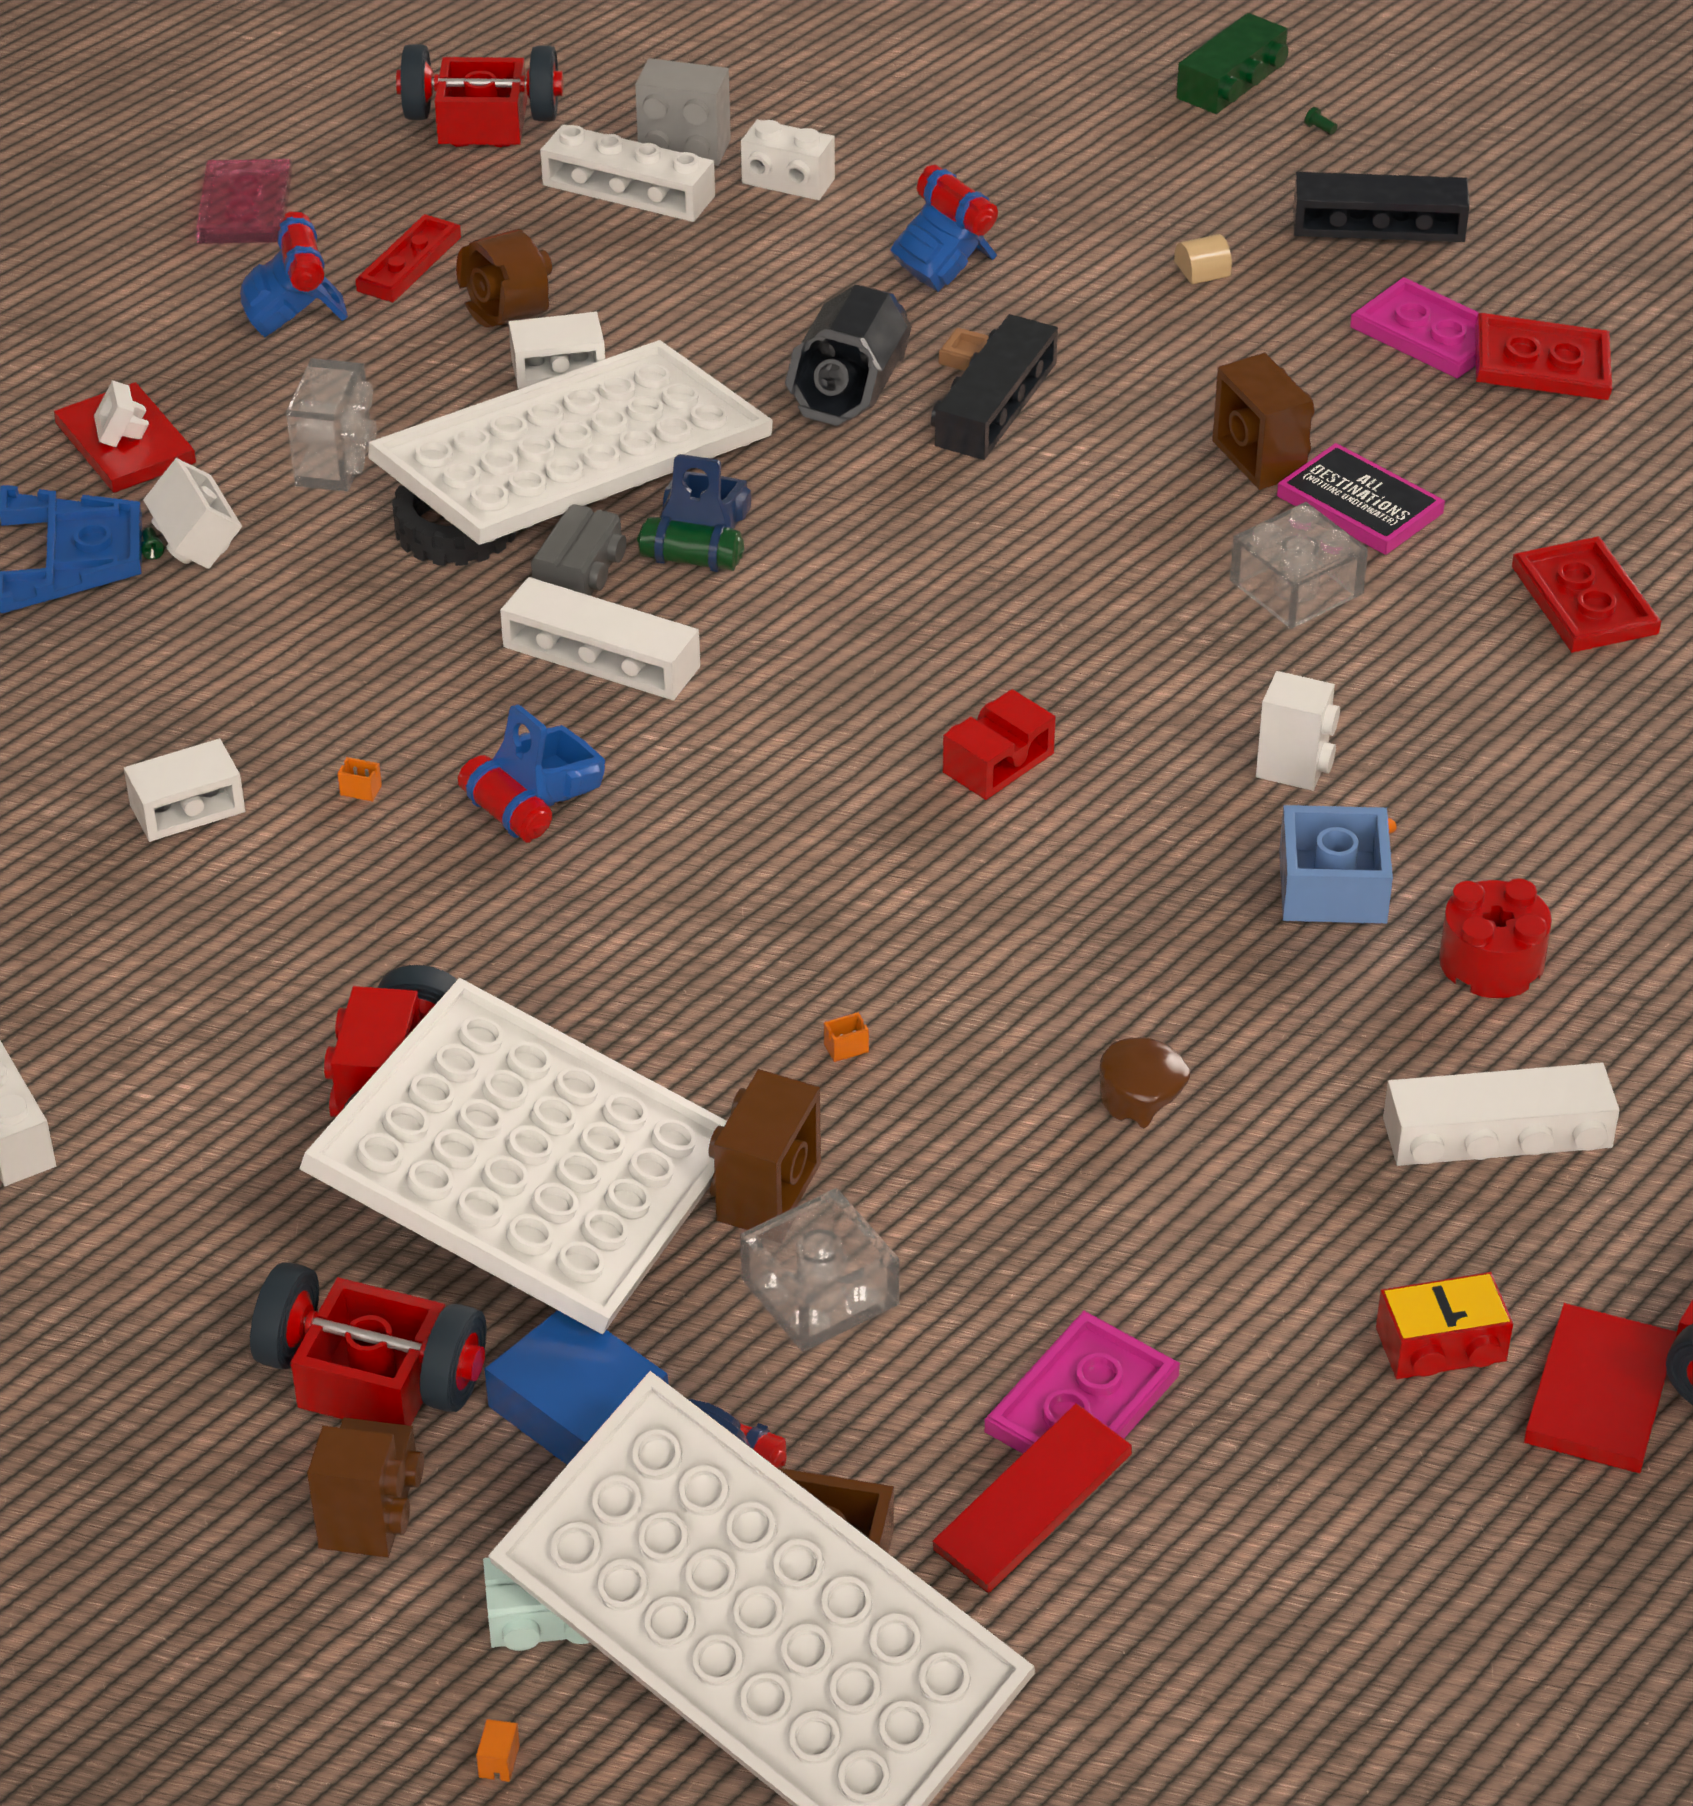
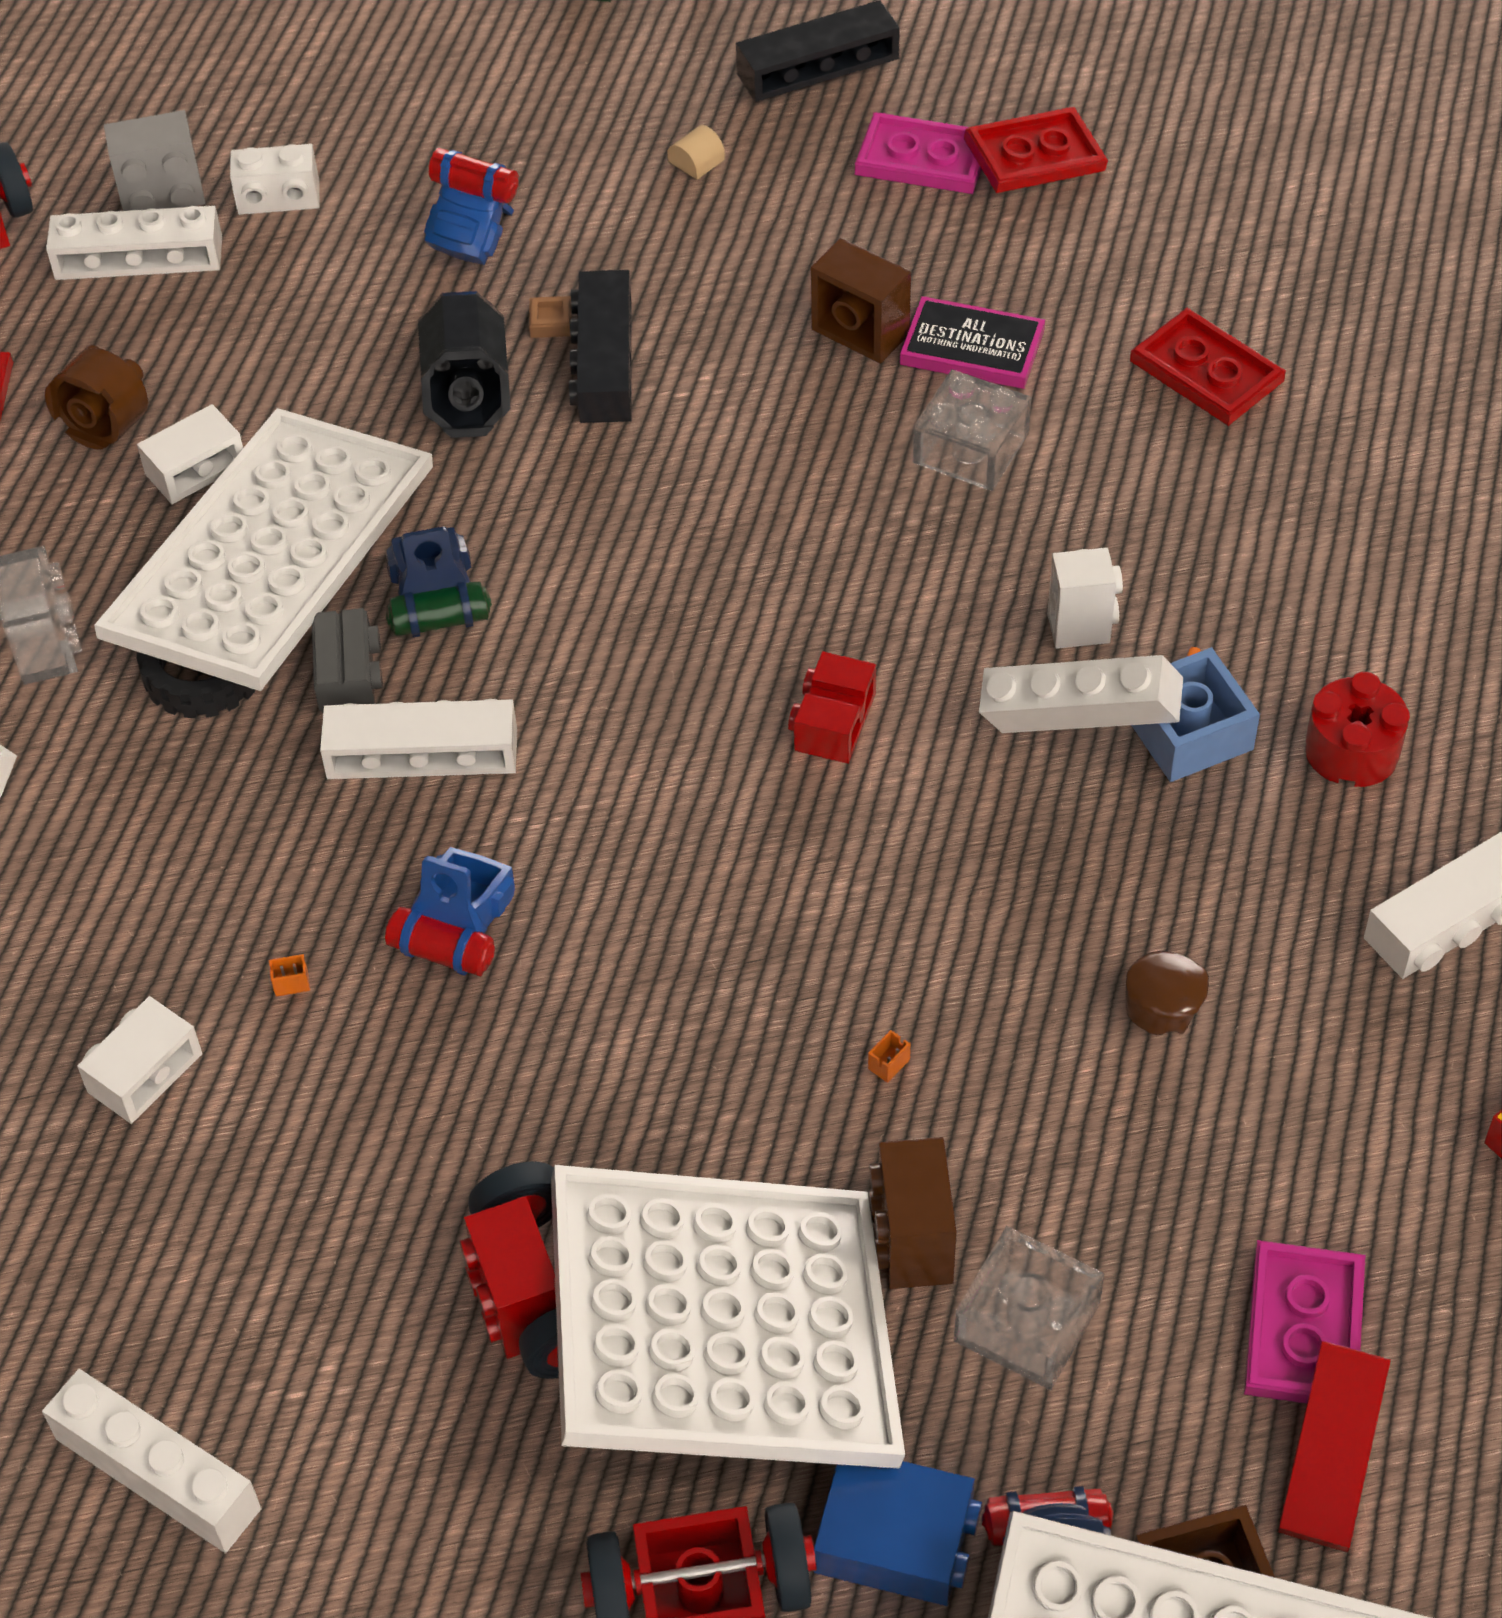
camera: 25 degrees left, 10 degrees up
(1227, 800) = (1082, 694): none -> white brick

